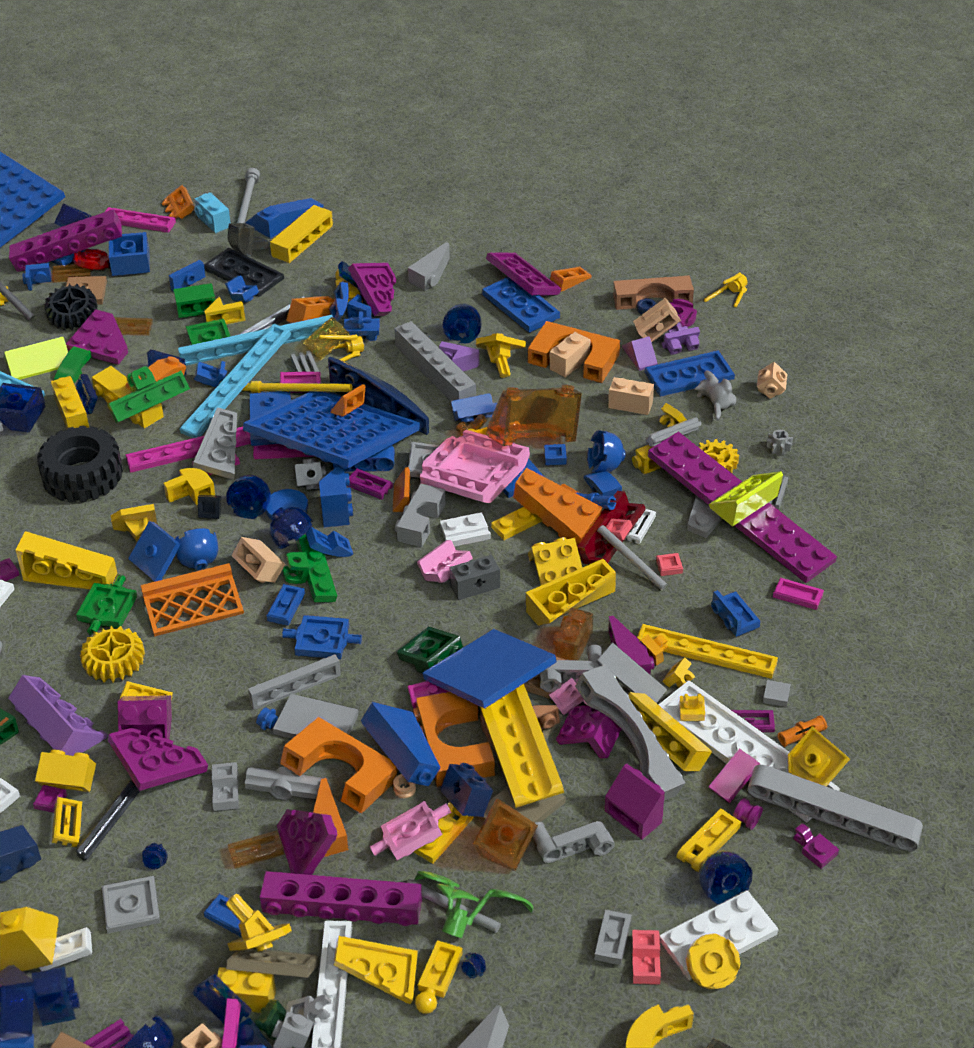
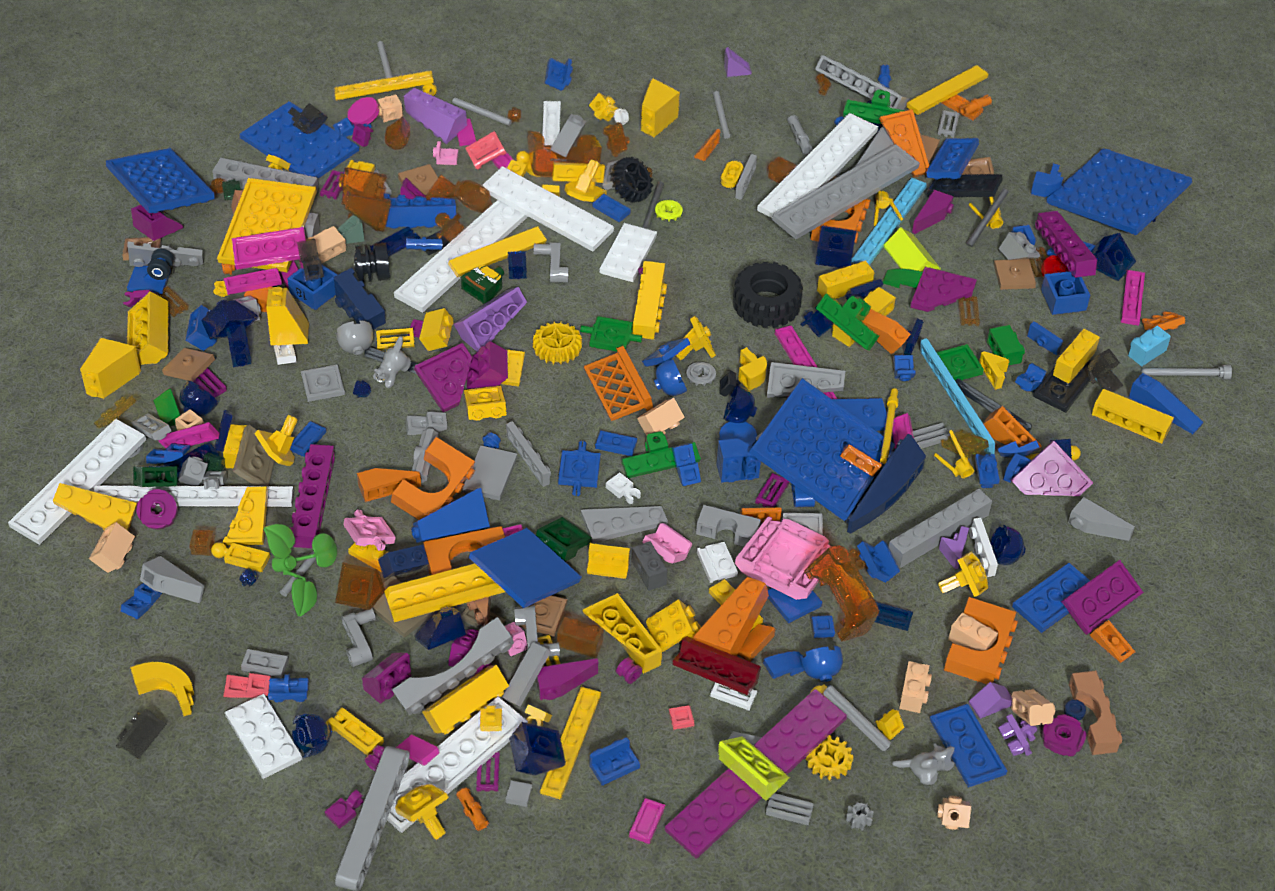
camera: 85 degrees right, 5 degrees up
(56, 276) = (1018, 247): none -> light grey slope
(67, 858) = (355, 337): none -> light grey cylinder
(70, 306) = (980, 263): black gear -> none
(120, 812) = (393, 361): none -> light grey animal
(121, 431) = (817, 322): none -> clear blue bracket
(182, 525) = (696, 369): none -> light grey gear
(204, 722) = (485, 403): none -> yellow plate
(223, 253) = (1076, 356): none -> yellow brick
(235, 380) = (897, 385): medium azure tile -> none
(257, 852) = (370, 457): clear orange tile -> none
(289, 525) = (698, 431): clear blue cylinder -> none
(305, 839) = (355, 464): magenta plate -> none
(355, 601) = (622, 486): none -> white plate
(402, 605) = (618, 522): none -> light grey wing
(412, 1023) = (202, 542): none -> clear orange plate
(461, 337) = (983, 547): none -> white plate
(468, 611) = (608, 561): none -> yellow bracket
(571, 752) = (441, 628): none -> clear blue slope
(601, 500) = (747, 641): blue pin -> none
(616, 598) = (629, 670): none -> magenta wheel
(619, 527) = (712, 668): coral tile -> none
(628, 554) = (679, 681): light grey bar -> none
(655, 647) = (564, 696): light orange tile -> none
(656, 905) = (288, 689): none -> blue hips
(713, 961) = (231, 725): yellow tile -> none
(728, 672) = (536, 749): none -> clear blue slope
(735, 284) = (1128, 793): yellow plant -> none

